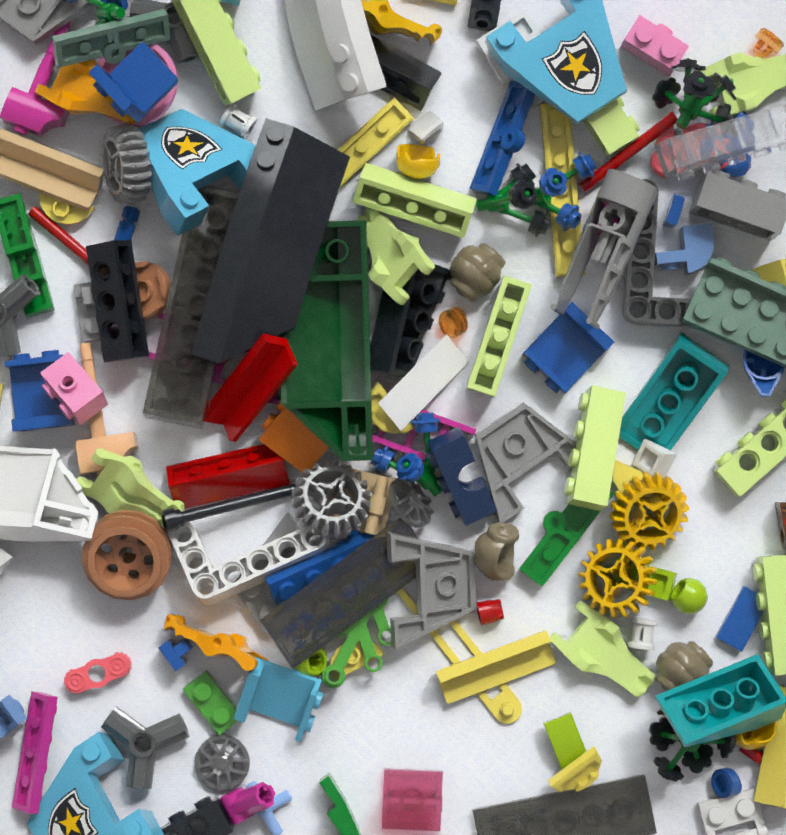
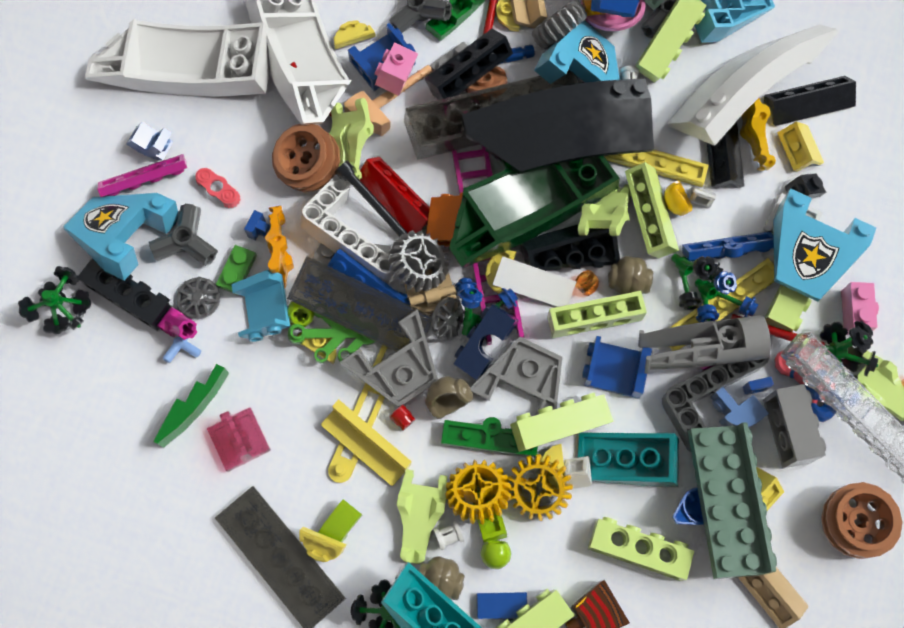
camera: 60 degrees right, 15 degrees down
(251, 385) = (465, 168): red panel -> none

